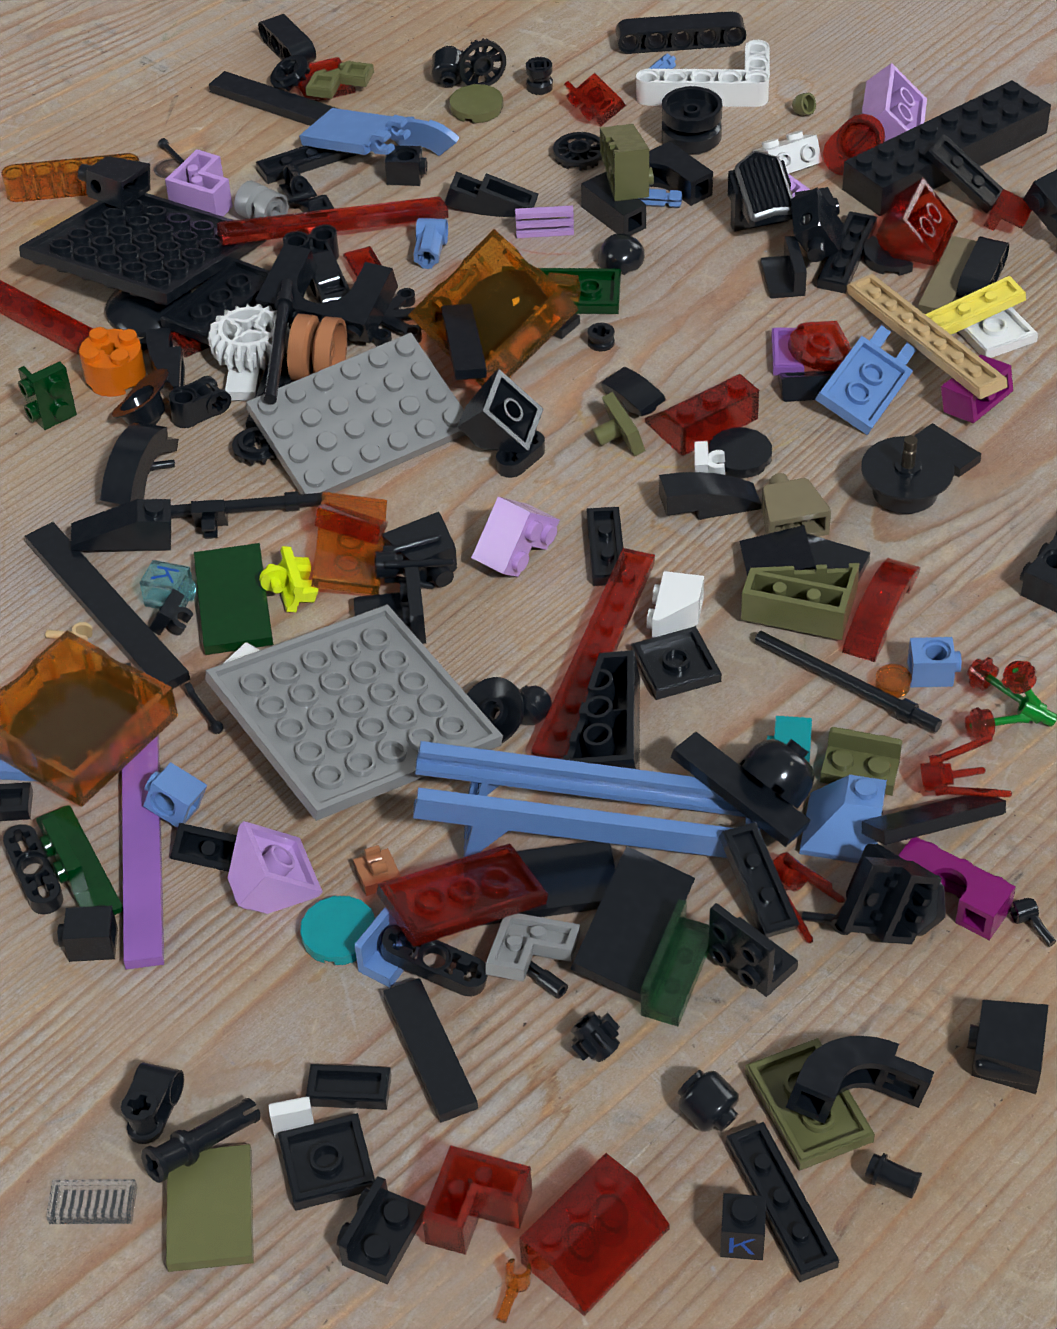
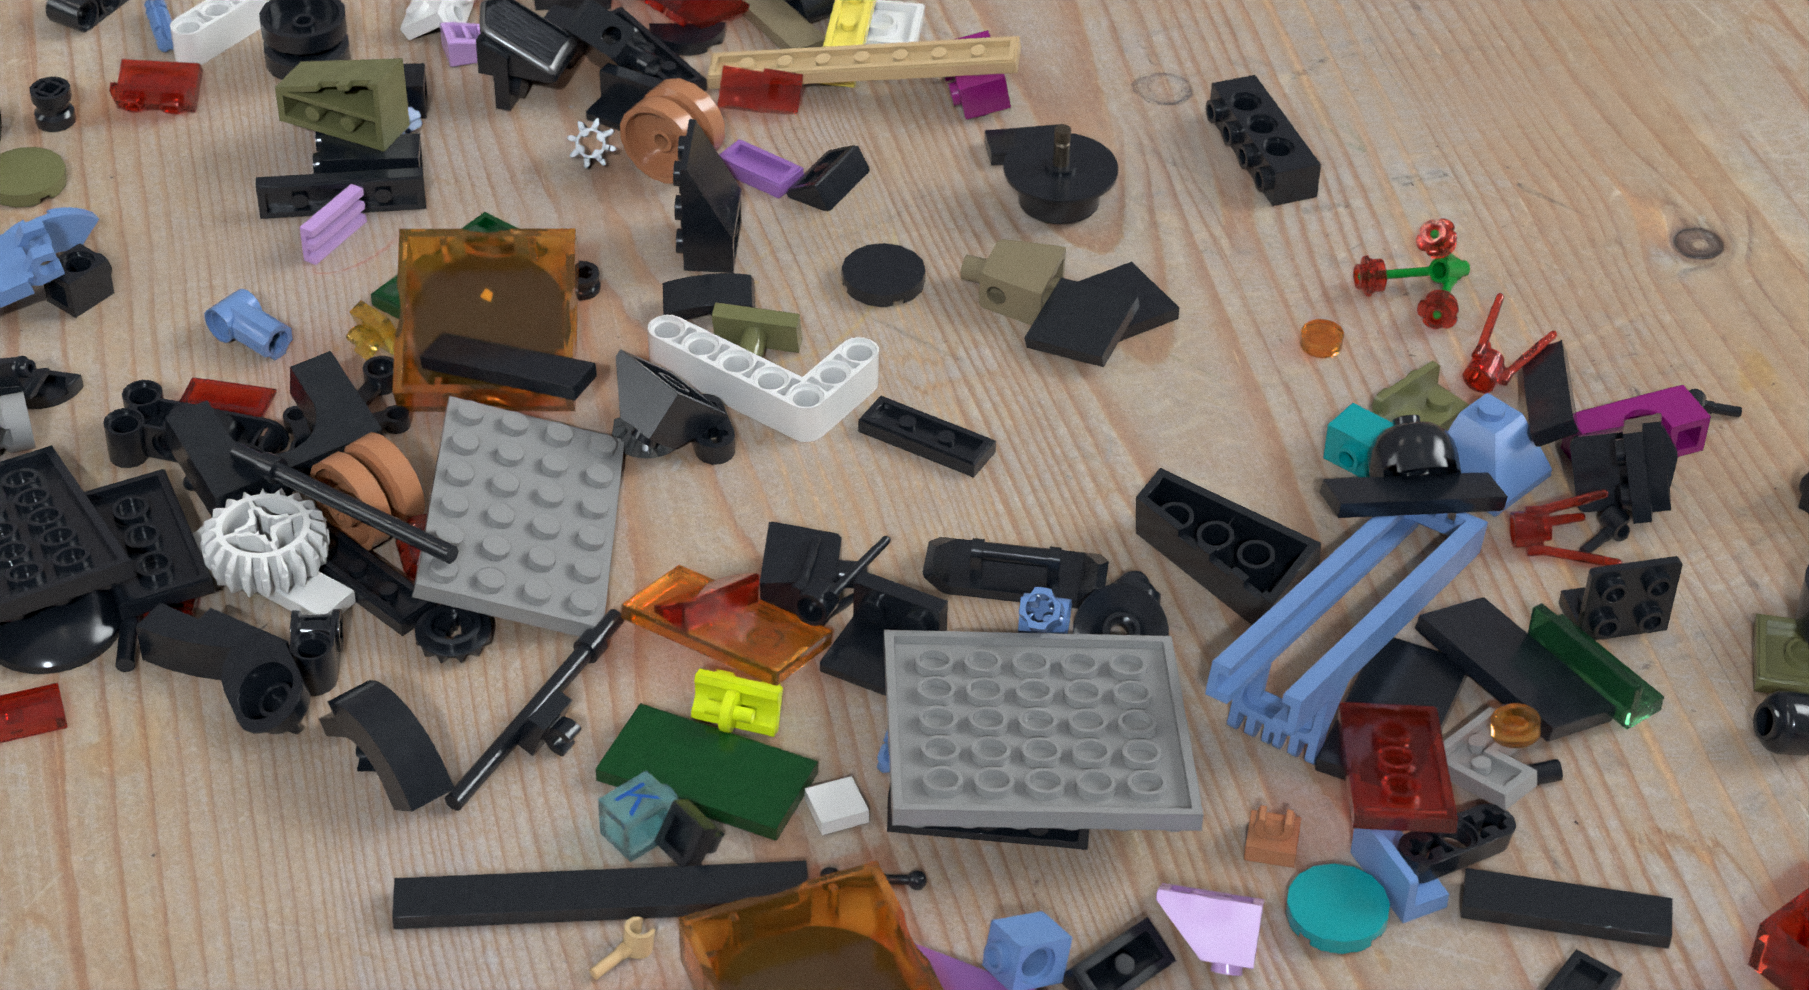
camera: 60 degrees left, 5 degrees down
(47, 395) = (154, 776): dark green bracket -> none
(112, 361) = (147, 689): orange brick -> none
(131, 526) = (495, 807): black slope -> none
(340, 218) = (101, 393): clear red tile -> none
(464, 664) = (1044, 612): none -> medium blue piece
(489, 196) = (226, 245): black slope -> none
(511, 534) = (869, 484): lavender brick -> none
(515, 639) = (1010, 570): none -> black piece
(559, 941) = (1515, 725): none -> clear orange tile
(578, 152) = (226, 146): black wheel -> none
(585, 217) = (309, 193): none -> black tile
(588, 481) = (761, 389): none -> white beam
(595, 1036) = (1654, 764): black gear -> none
(600, 636) = (1097, 518): clear red tile -> none
(622, 253) = (457, 199): black hair -> none
(676, 663) = (1143, 454): black tile -> none
(677, 603) = (1079, 423): white slope -> none
(695, 337) = (706, 206): none -> black slope
(706, 413) = (798, 261): clear red slope -> none
(706, 494) = (932, 327): black slope -> none
(707, 461) = (886, 302): white tile -> none
(722, 272) = (583, 149): none -> gear
(759, 293) = (655, 123): none -> nougat wheel
(759, 880) = (1530, 546): black tile -> none
(801, 599) = (1172, 330): olive wedge -> none
(819, 345) = (787, 139): clear red tile -> none
(854, 309) = (759, 91): none -> clear red slope
(866, 381) = (881, 134): medium blue tile -> none
(878, 608) = (1240, 315): clear red slope -> none
(904, 709) = (1369, 349): black bar -> none
(933, 662) = (1328, 294): medium blue brick -> none

